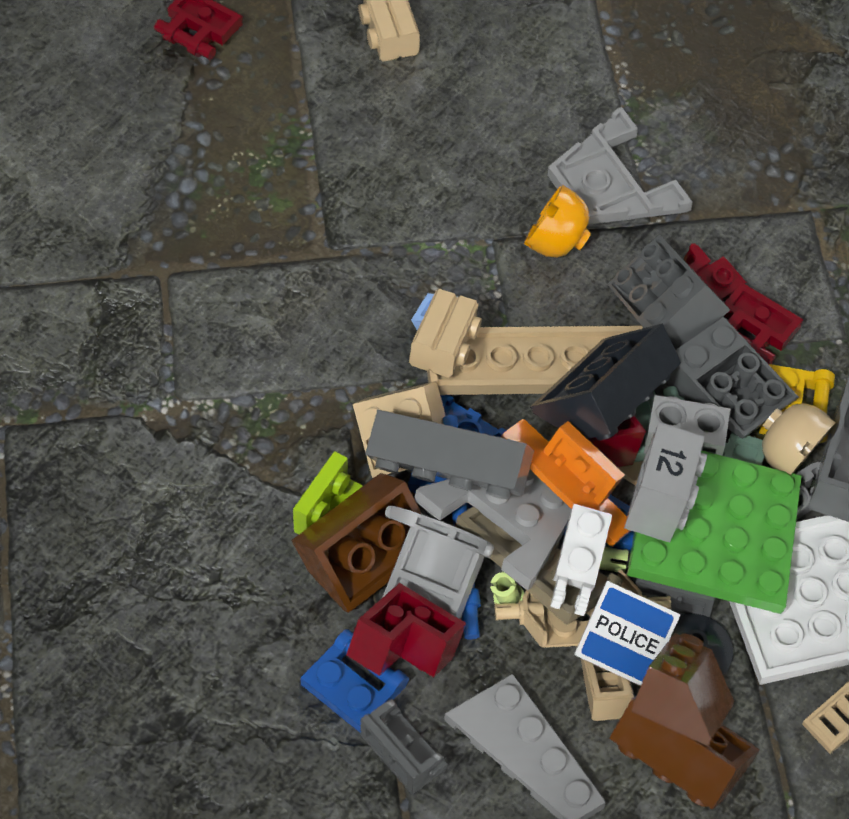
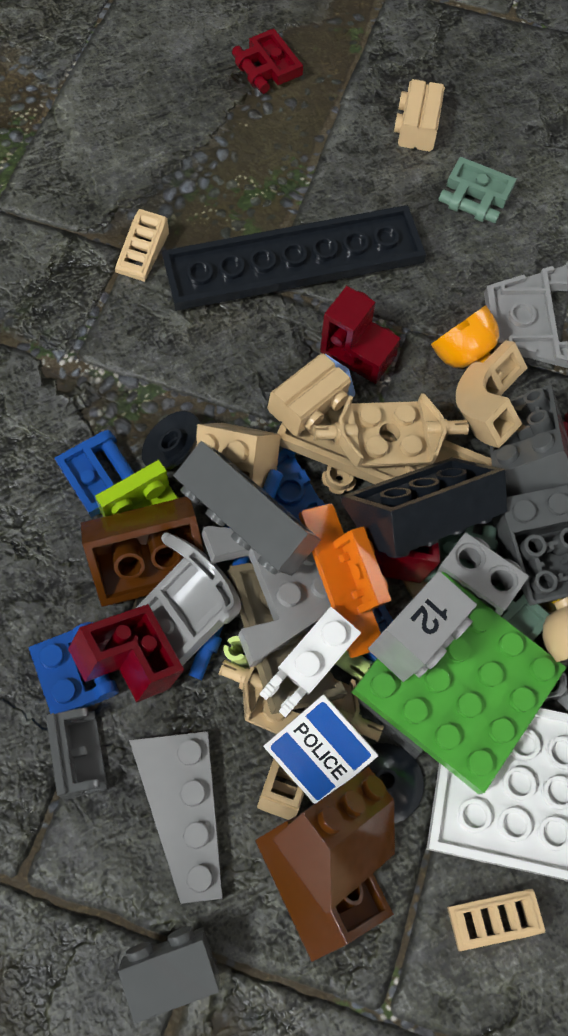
camera: 25 degrees right, 10 degrees up
(180, 240) = (147, 226): none -> tan slope
(260, 500) = (85, 471): none -> blue plate
(324, 430) = (171, 440): none -> black dish
(339, 215) = (292, 257): none -> black plate
(452, 265) = (356, 340): none -> dark red brick
(487, 68) = (480, 183): none -> sand green plate
(495, 407) = (338, 487): none -> tan plate
(556, 322) = (415, 424): none -> tan plate
(595, 264) = (481, 398): none -> tan arch

